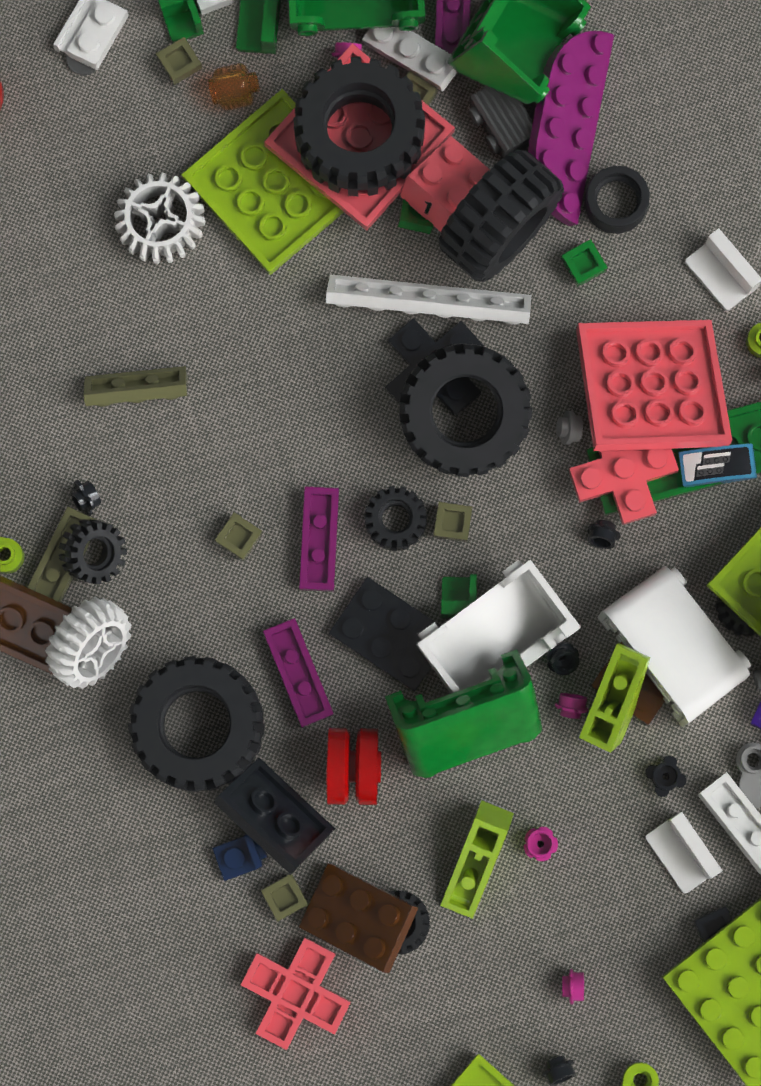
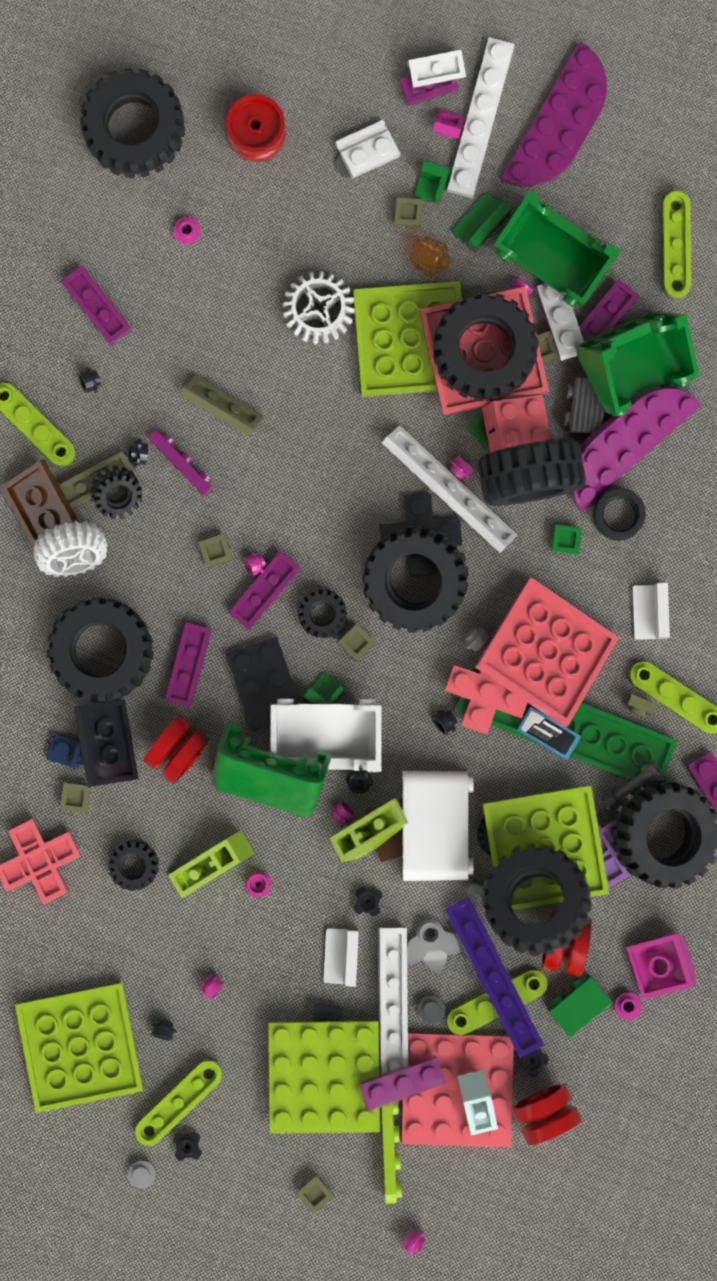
camera: 35 degrees right, 5 degrees up
(136, 473) = (181, 462): none -> magenta plate
(289, 520) = (254, 563): none -> dark pink plate
(358, 918) = (110, 845): reddish brown plate -> none
(423, 270) = (460, 468): none -> dark pink plate

